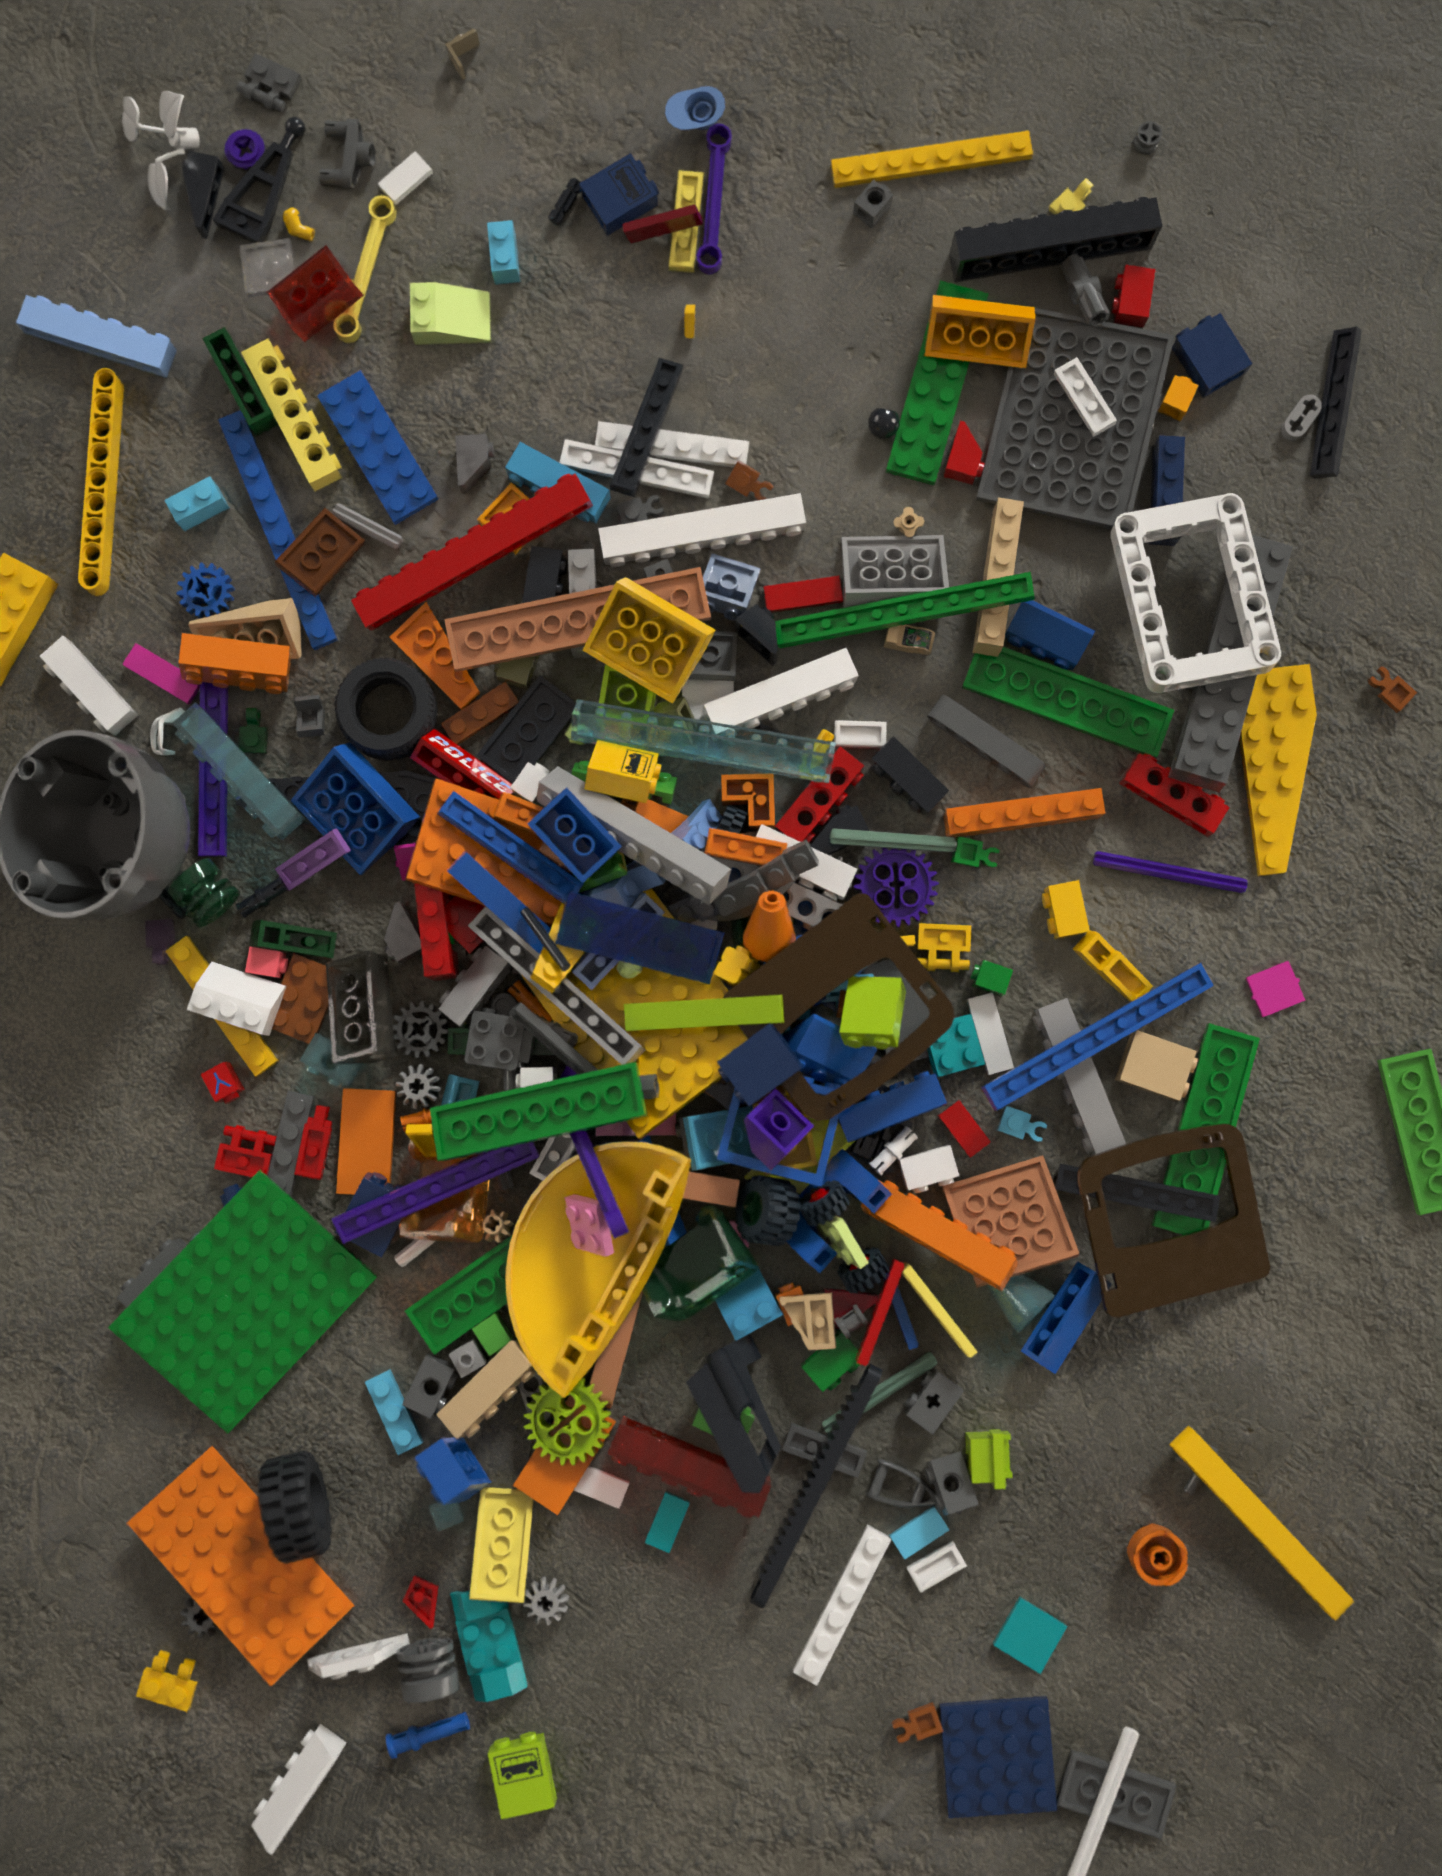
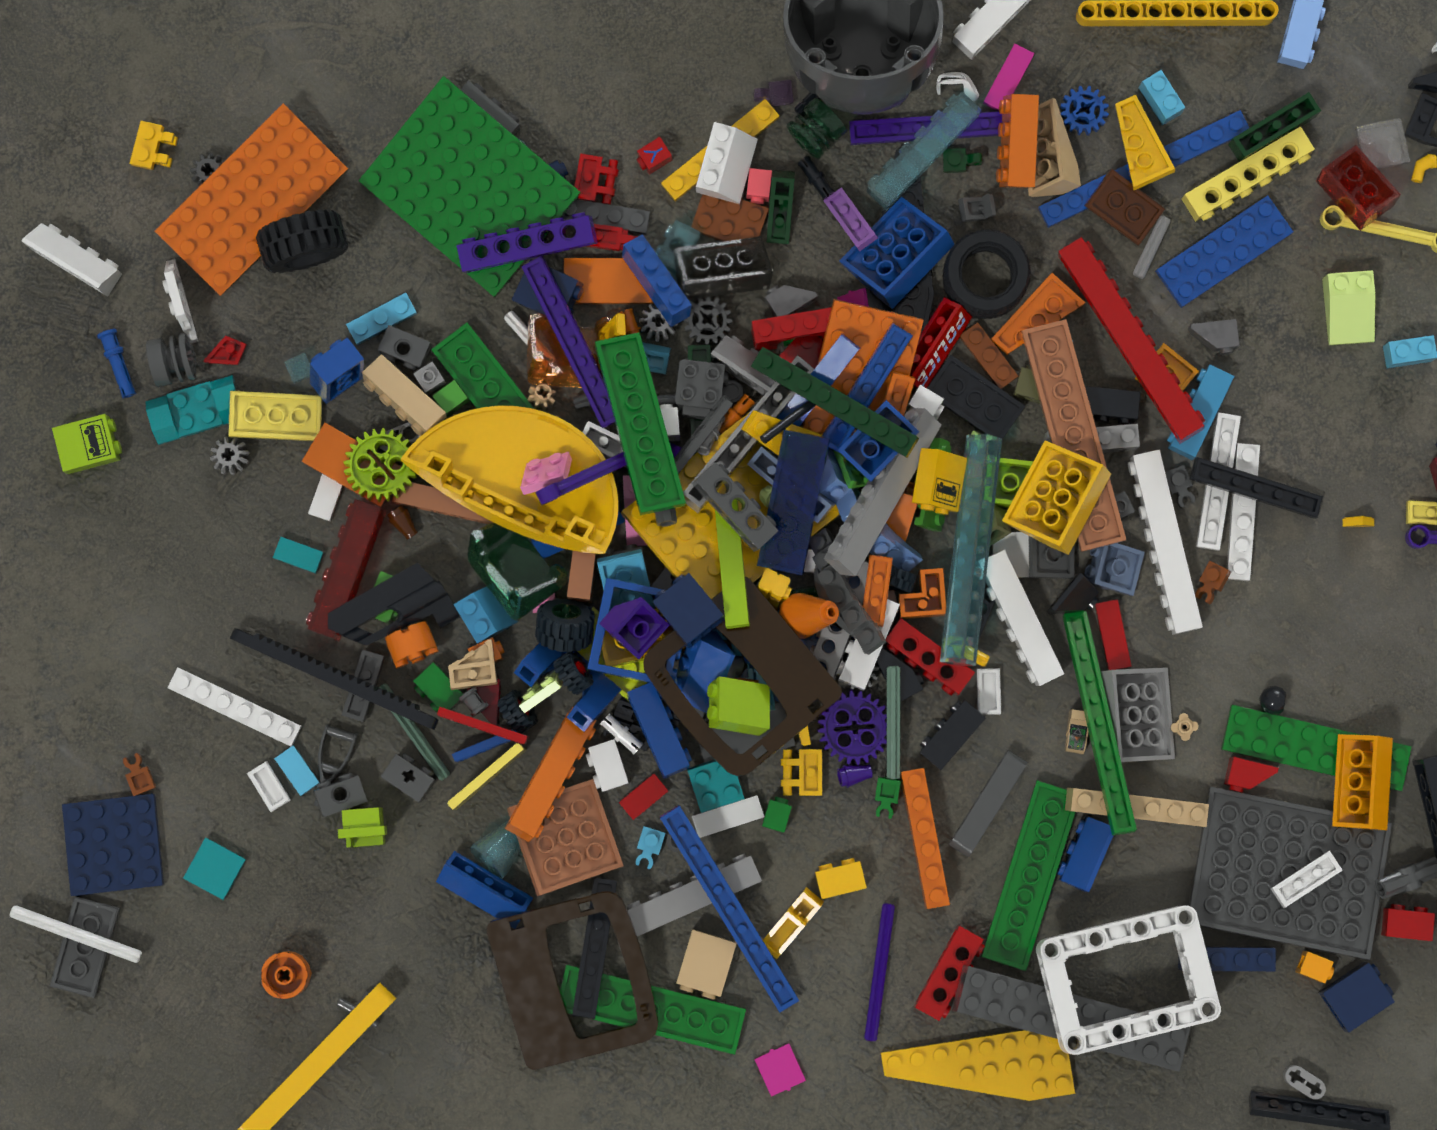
camera: 85 degrees right, 0 degrees up
(254, 526) = (1142, 146): none -> yellow wing
(318, 1305) = (584, 236): none -> dark purple brick
(369, 1085) = (656, 280): none -> blue brick
(526, 883) = (835, 402): none -> dark green plate
(616, 1036) = (722, 504): none -> dark grey brick
(634, 1396) = (402, 522): none -> reddish brown cone
(780, 1392) = (411, 644): none -> orange brick
(948, 890) = (853, 774): none -> dark purple cone

